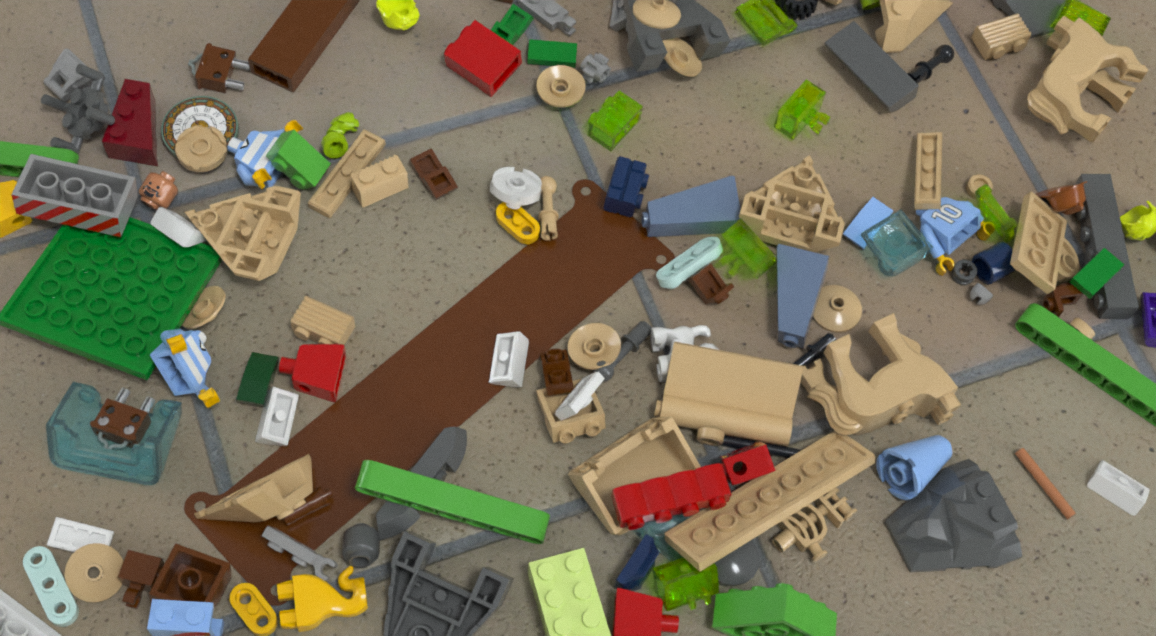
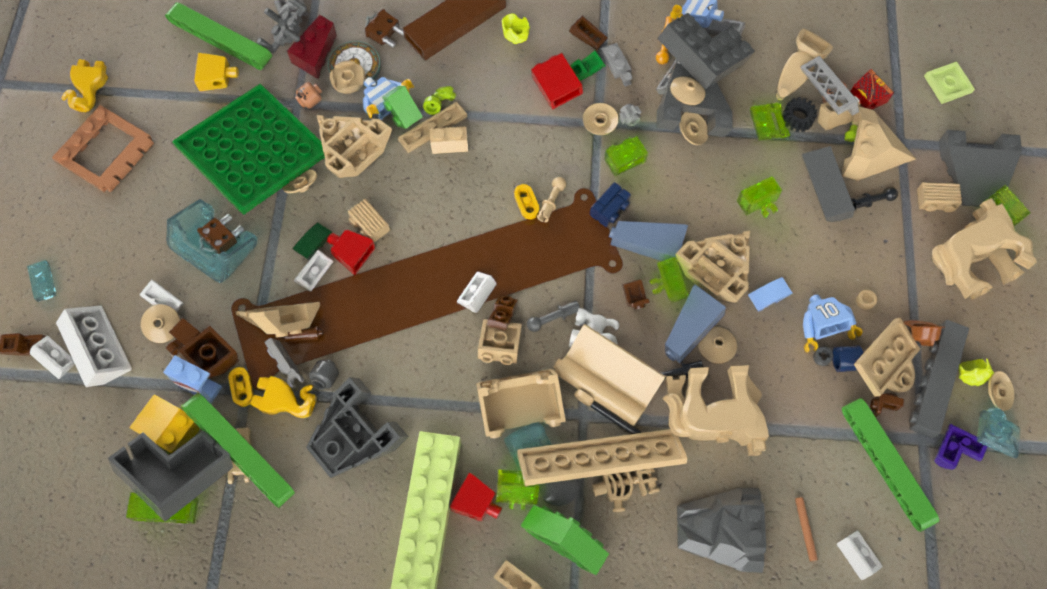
camera: 30 degrees right, 5 degrees up
(55, 596) = (132, 328): light aqua plate -> none
(75, 195) = (253, 80): light grey brick -> none
(177, 227) = (308, 123): white slope -> none
(184, 364) = (270, 213): light blue torso -> none
(433, 174) = (487, 148): reddish brown slope -> none
(442, 456) = (374, 352): dark grey brick -> none
(452, 502) = (391, 371): bright green beam -> none
(516, 187) = (541, 182): white plate -> none
(552, 53) = (607, 94): green tile -> none
(579, 396) = (506, 335): white plate -> none
(593, 337) = (535, 298): tan dish -> none
(638, 566) = (491, 464): dark blue slope -> none
(671, 495) = (532, 426): red brick -> none
(689, 262) = (629, 273): light aqua plate -> none
(755, 463) = (602, 426): red torso -> none
(896, 243) = (781, 316): clear light blue slope -> none
(913, 465) = (715, 476): light blue cone -> none
(928, 171) = (832, 274): tan tile -> none
(981, 292) = (828, 376): light grey hinge -> none
(995, 213) = (865, 318): clear neon green plate -> none
(1082, 327) = (889, 431): tan tile -> none
(1097, 273) = (919, 396): green tile -> none

